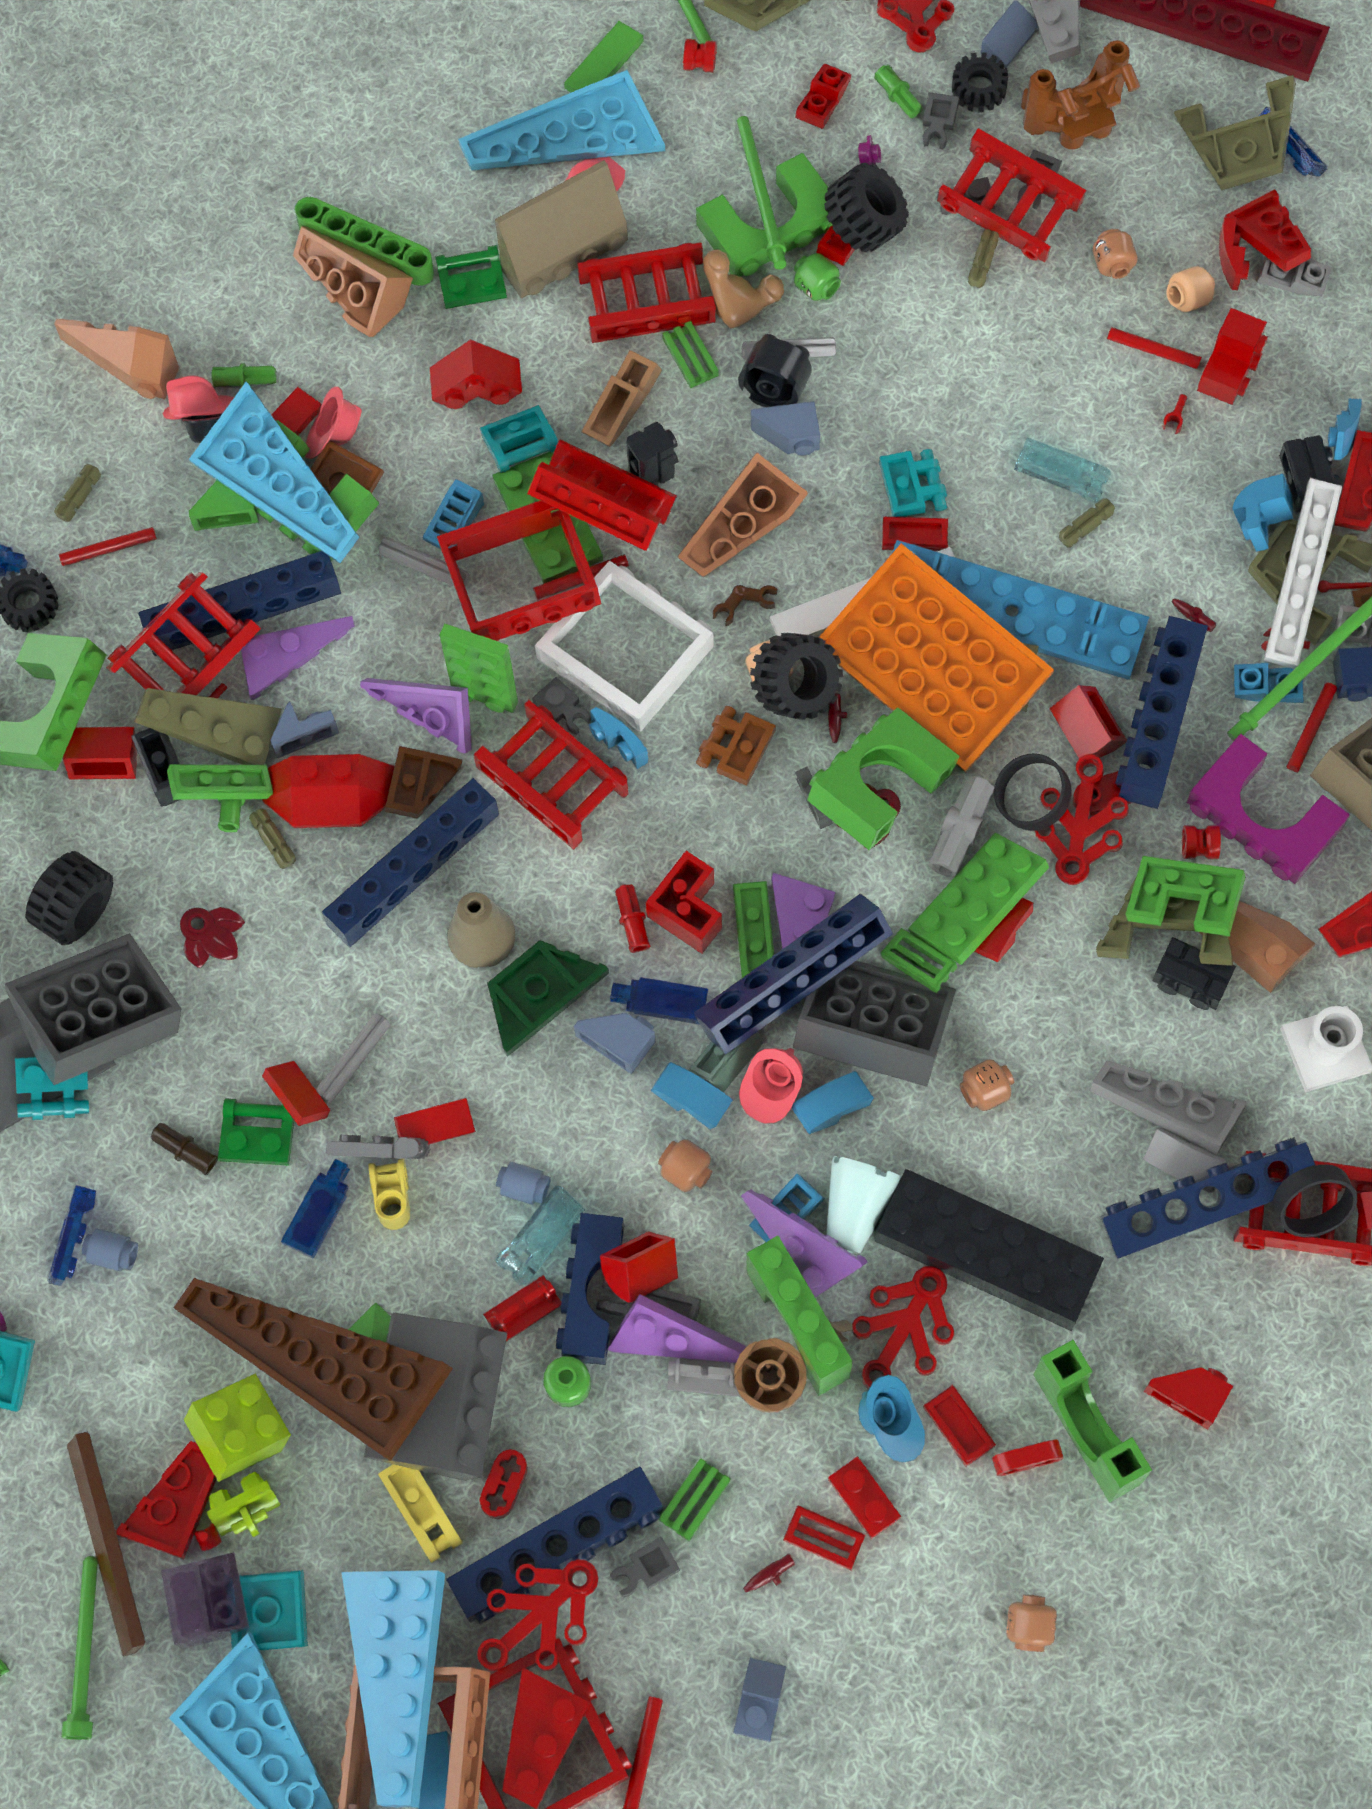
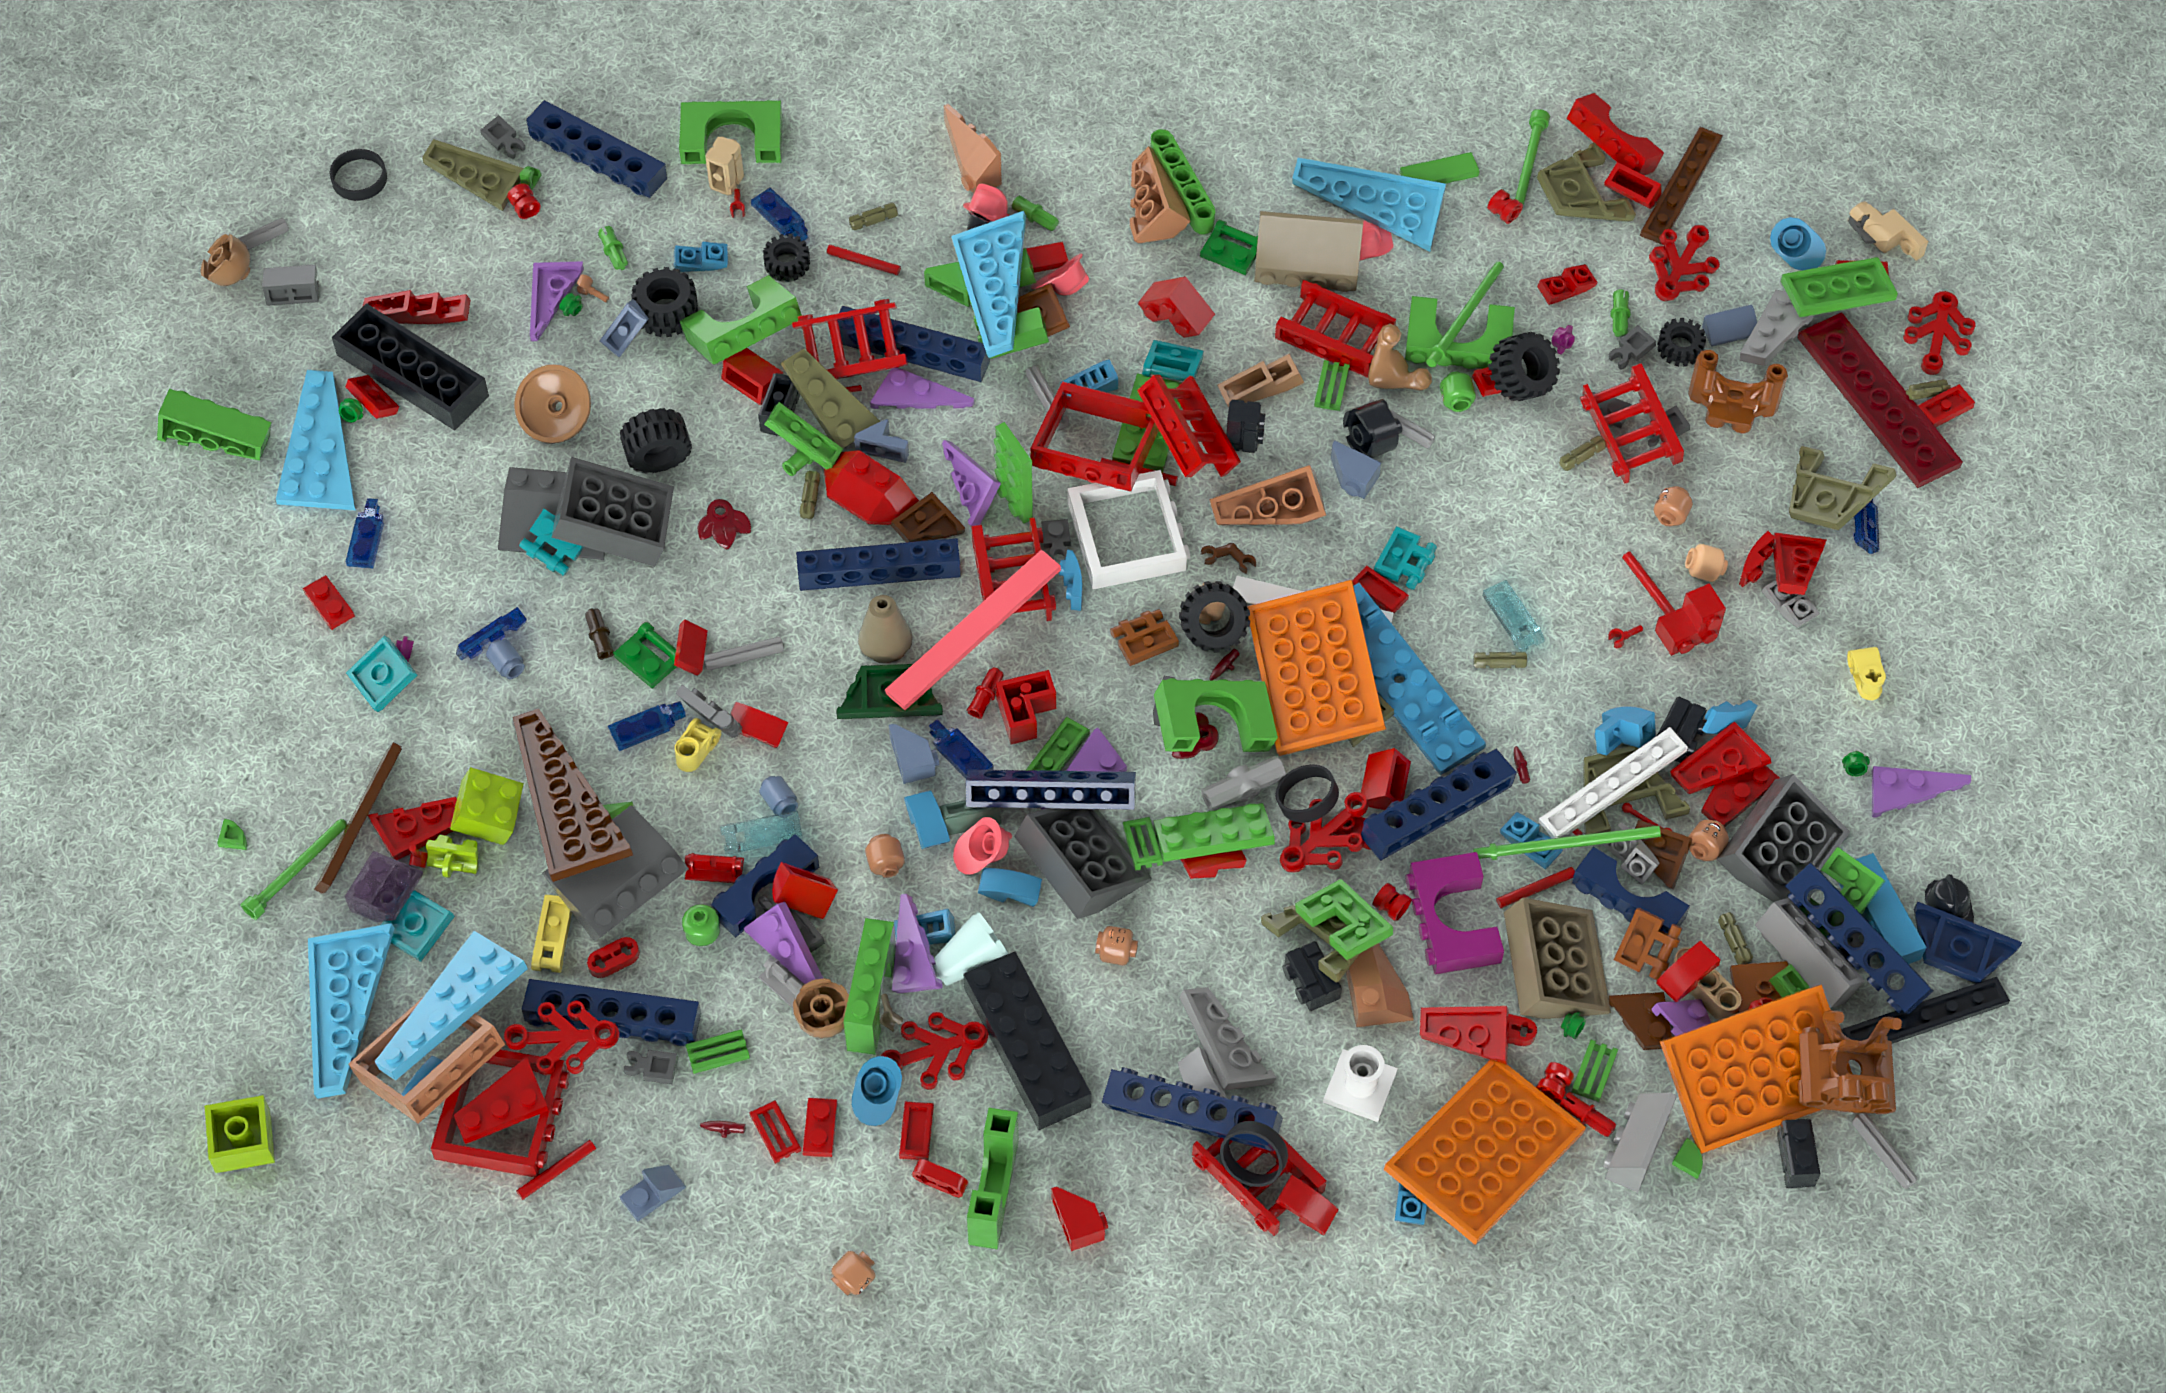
camera: 35 degrees right, 10 degrees down
(572, 864) = (973, 630): none -> coral tile

